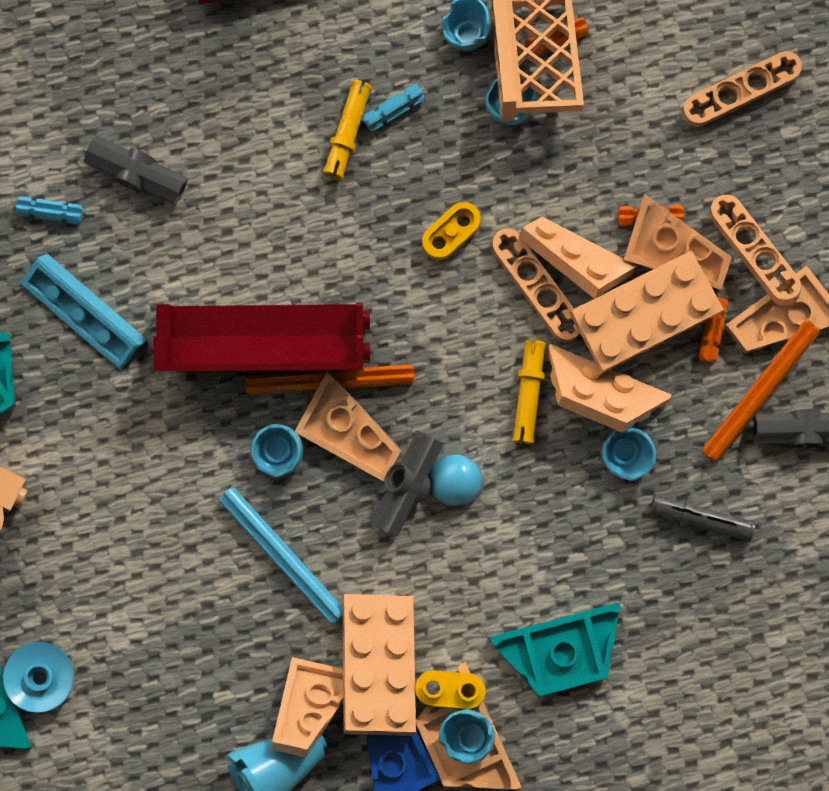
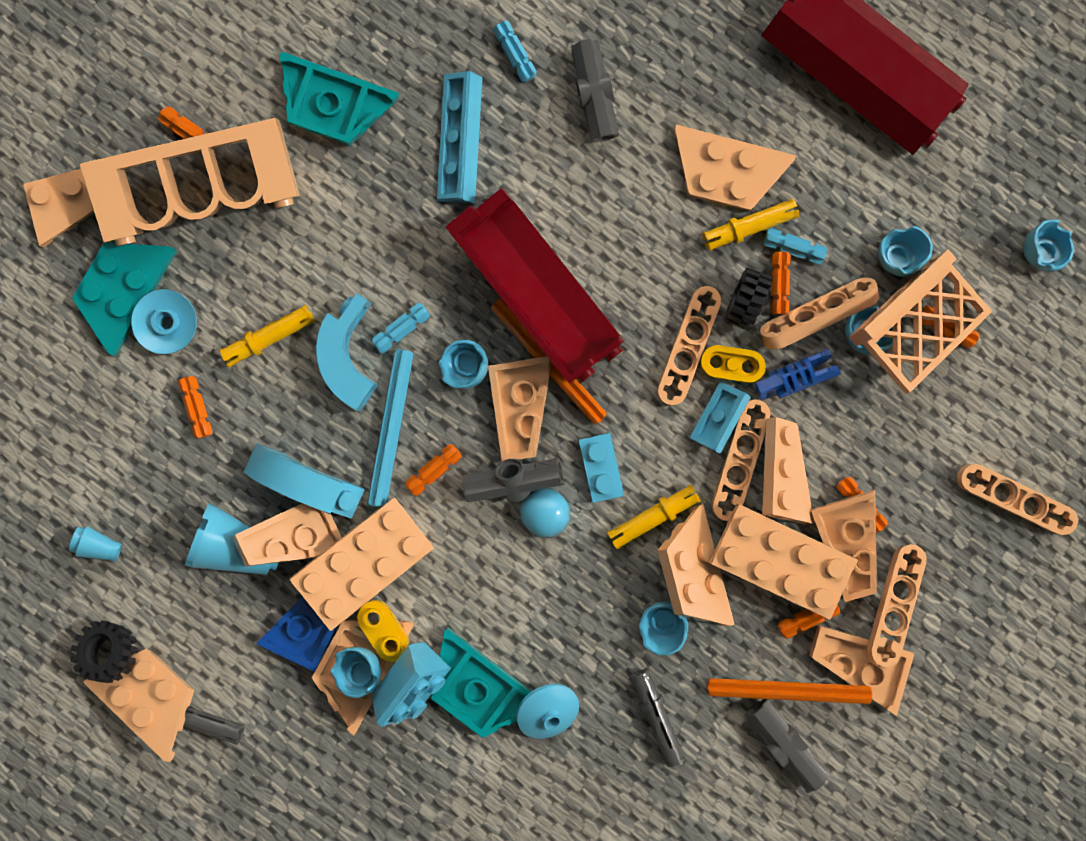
camera: 55 degrees right, 10 degrees up
(120, 599) = (255, 342): none -> yellow pin
(131, 710) = (194, 407): none -> orange axle
(198, 560) = (334, 356): none -> medium azure arch
(203, 481) = (400, 327): none -> medium azure axle
(268, 661) = (302, 482): none -> medium azure arch
(286, 113) = (728, 169): none -> light nougat wing
(346, 546) = (433, 470): none -> orange axle
(407, 176) = (748, 299): none -> black tyre
(410, 254) = (691, 347): none -> light nougat beam
(414, 142) = (780, 283): none -> orange axle
(453, 404) = (601, 467): none -> medium azure plate
(464, 129) = (850, 298): none -> light nougat beam
(487, 274) = (720, 417): none -> medium azure plate
(502, 187) = (796, 376): none -> blue hinge
(513, 700) = (409, 685): none -> medium azure slope
(626, 605) = (547, 711): none -> medium azure dish

